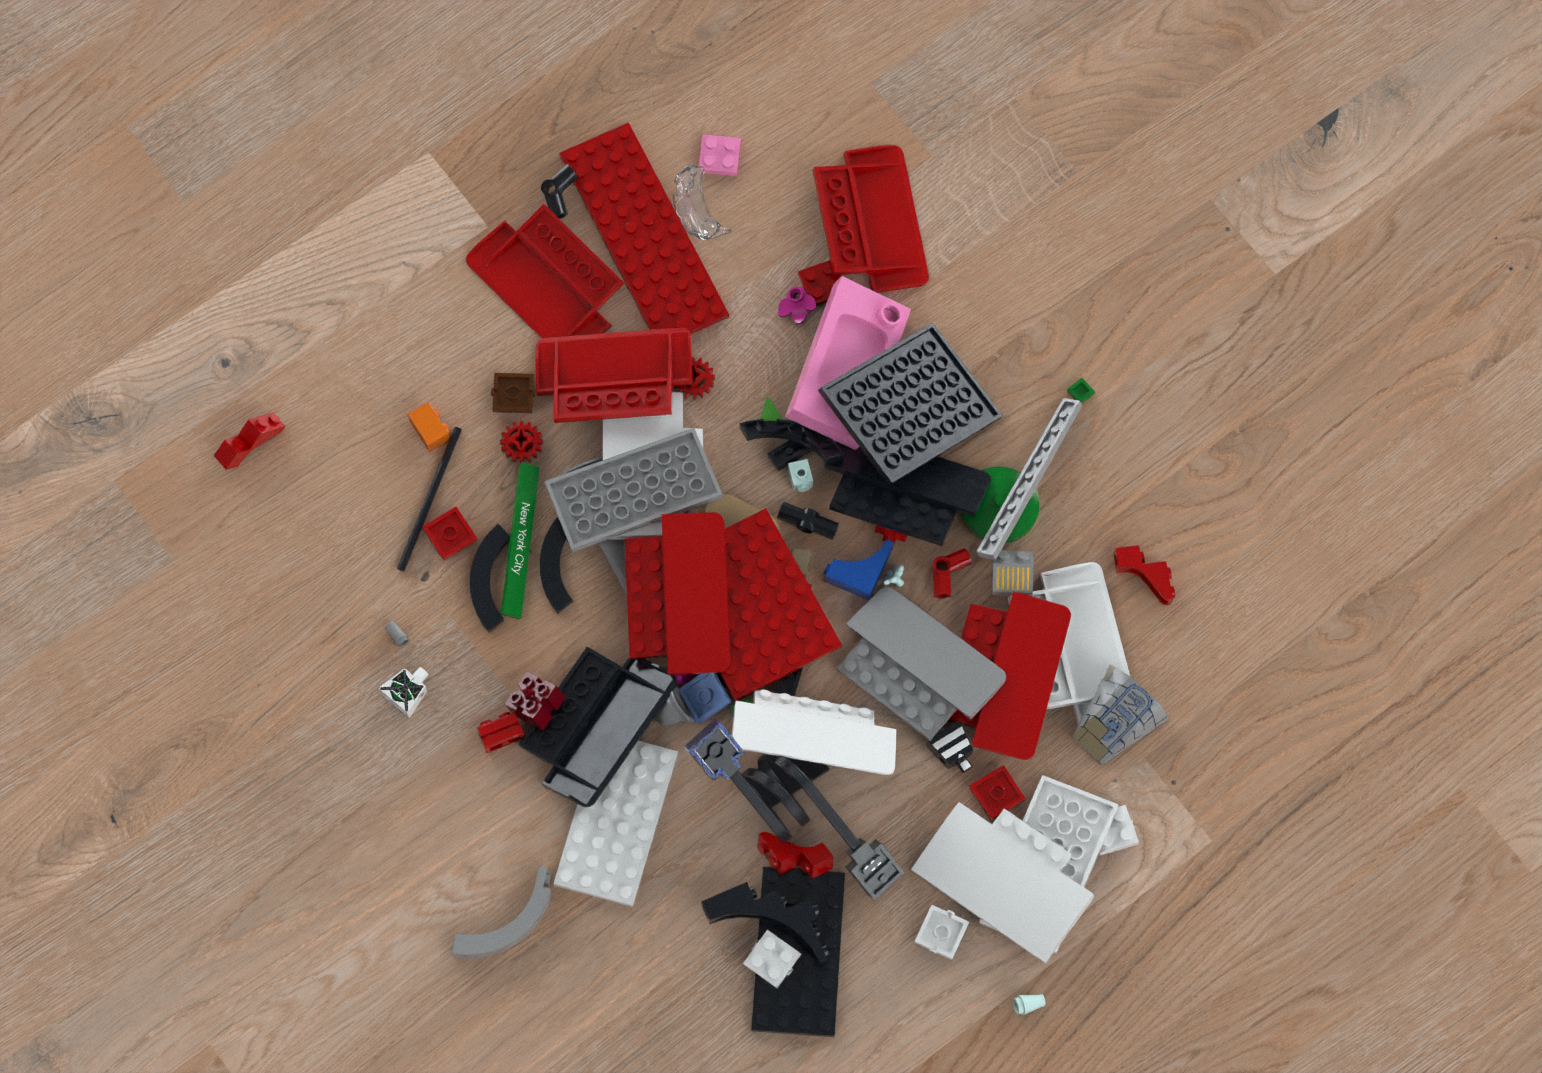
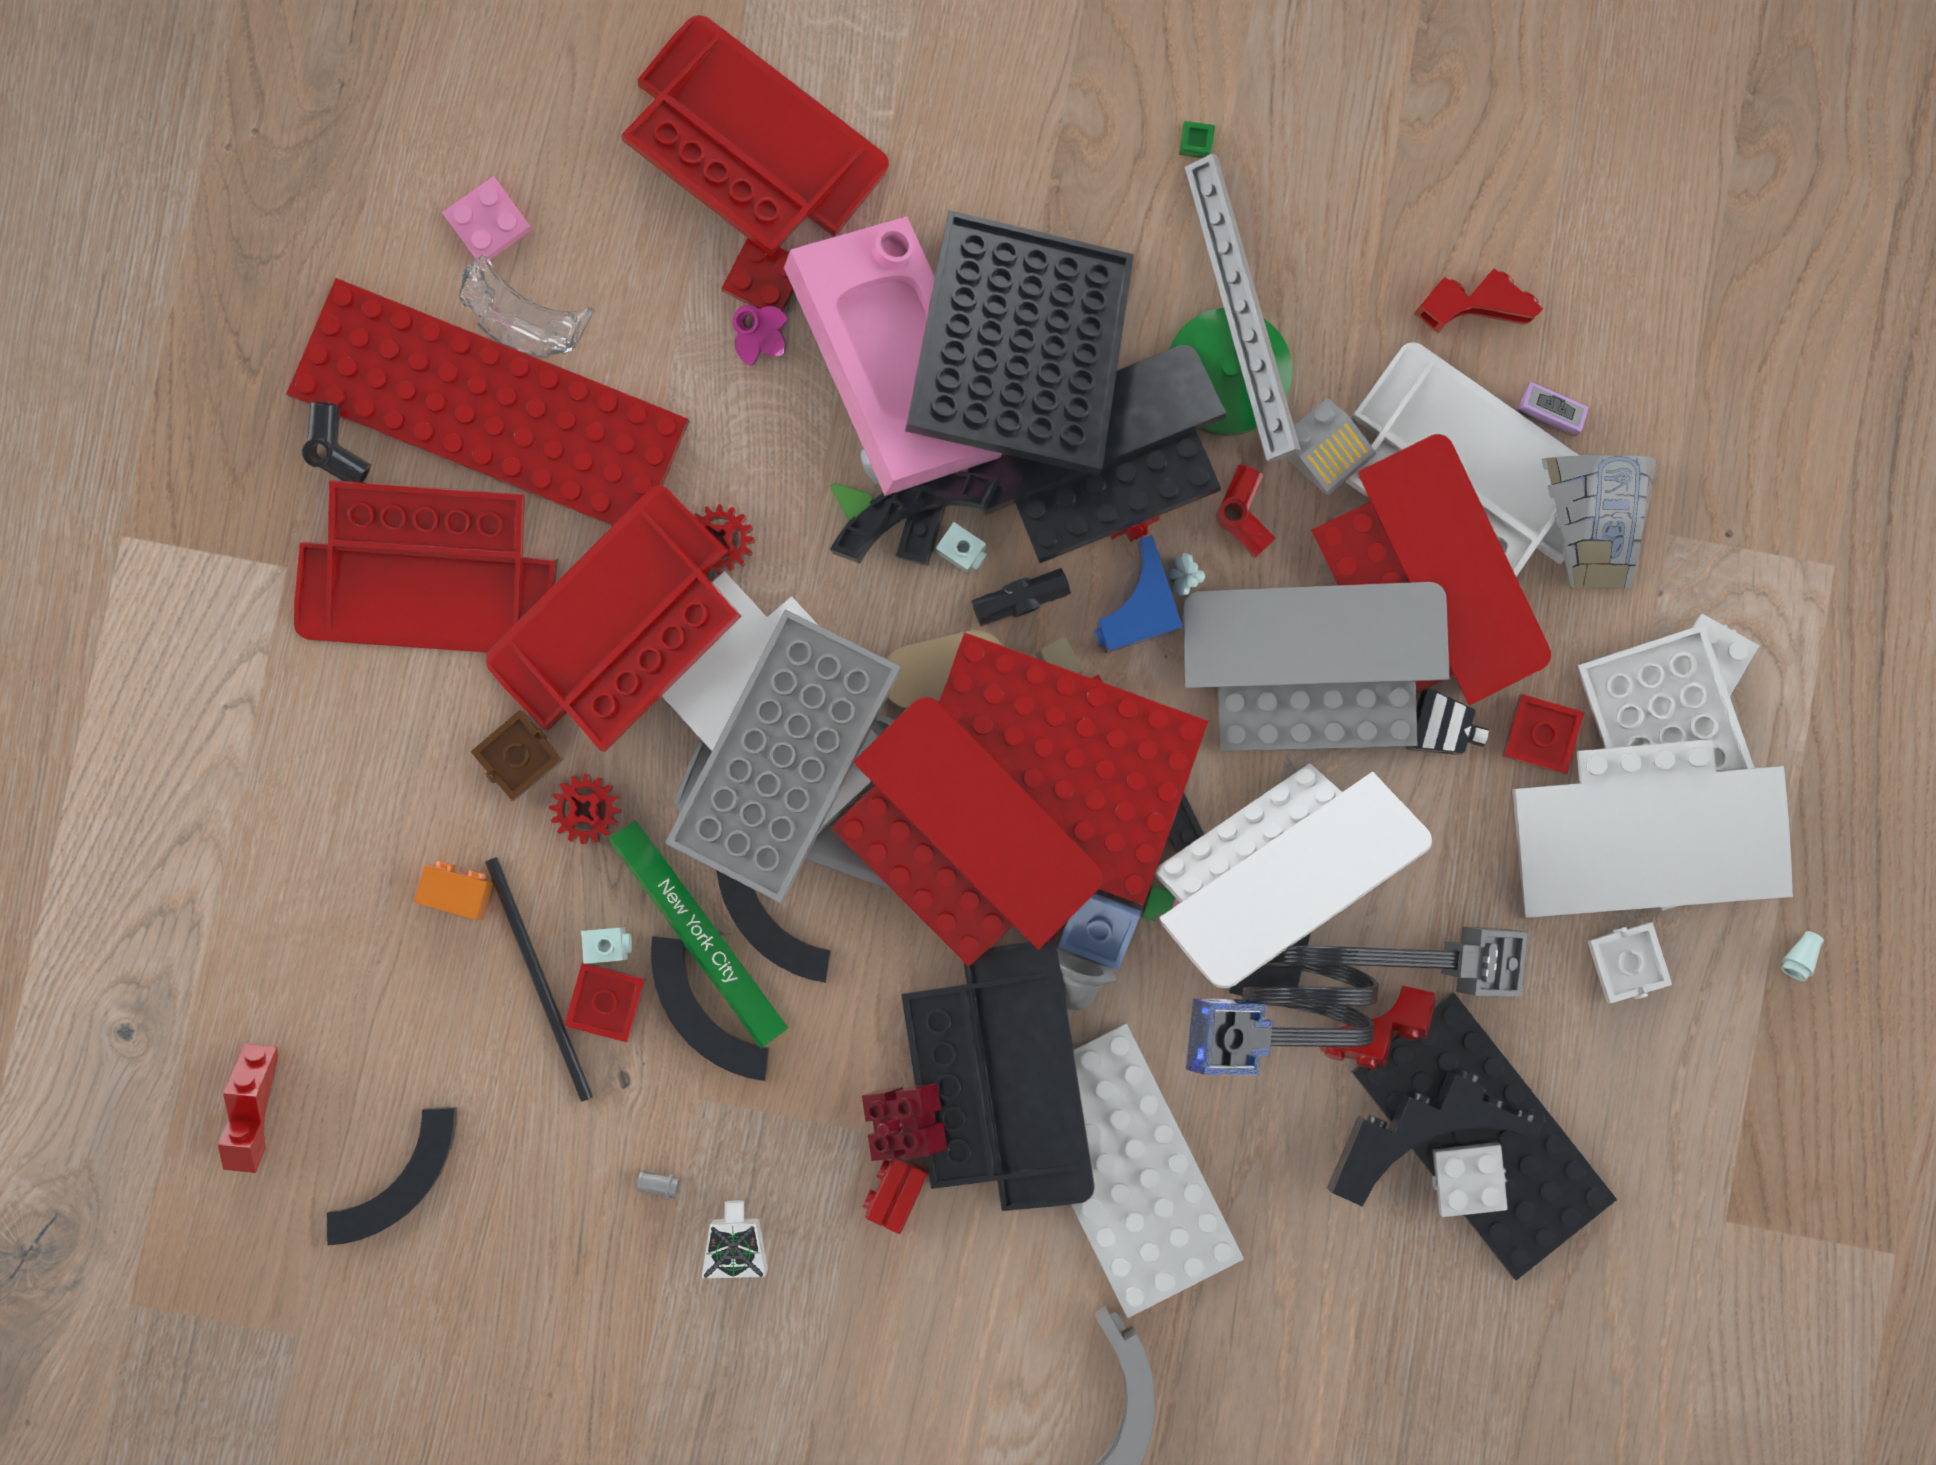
camera: 40 degrees left, 15 degrees up
(283, 538) = (407, 1190): none -> black tile
(474, 508) = (606, 945): none -> light aqua brick
(1139, 651) = (1553, 409): none -> slope

